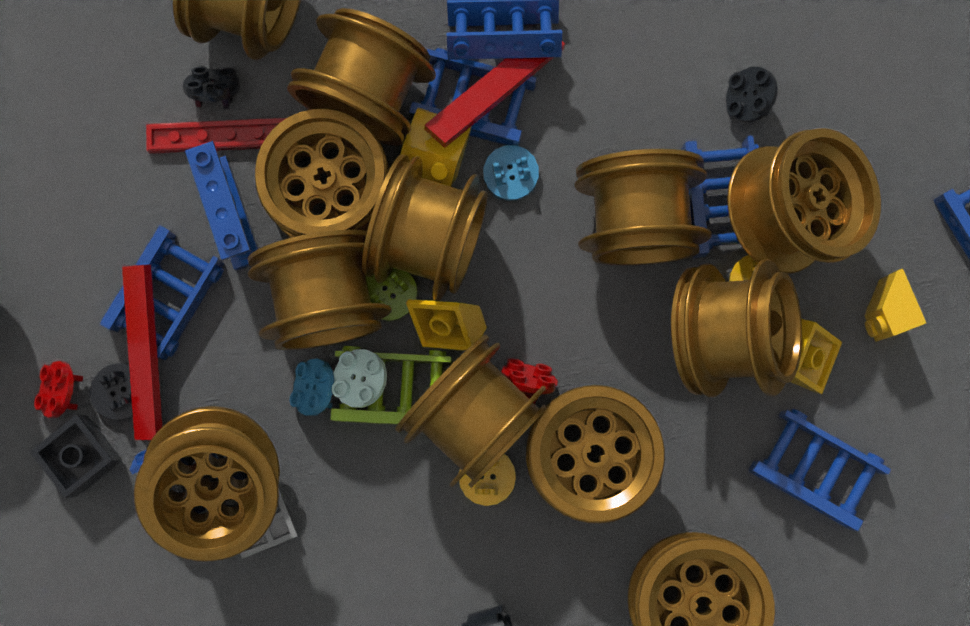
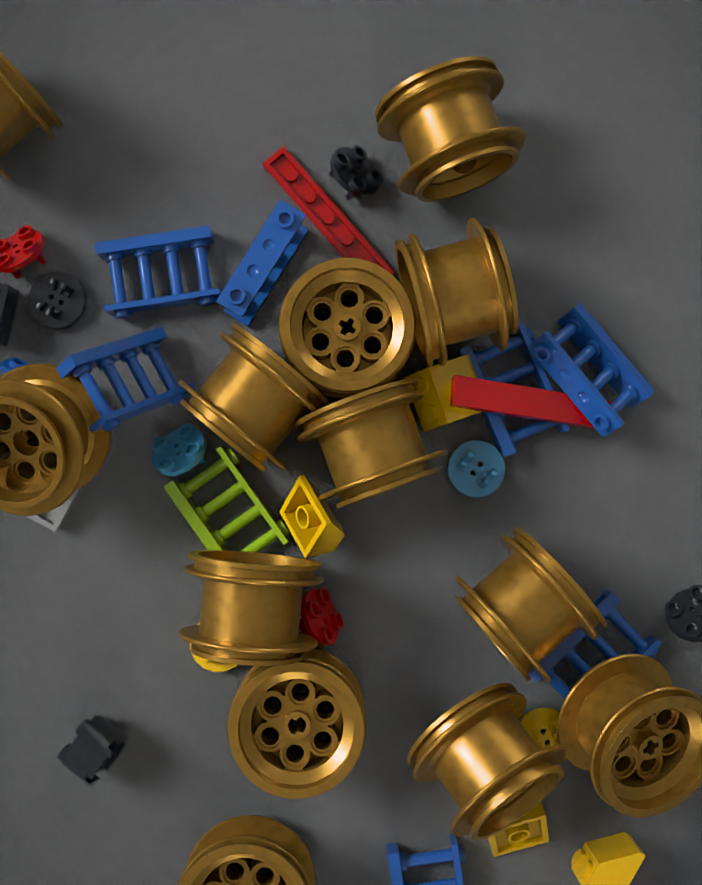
camera: 45 degrees right, 5 degrees up
(142, 351) = (99, 295): red tile -> none
(202, 362) = (126, 350): none -> blue fence
(357, 391) = (224, 479): light aqua plate -> none
(398, 283) = (295, 465): lime plate -> none

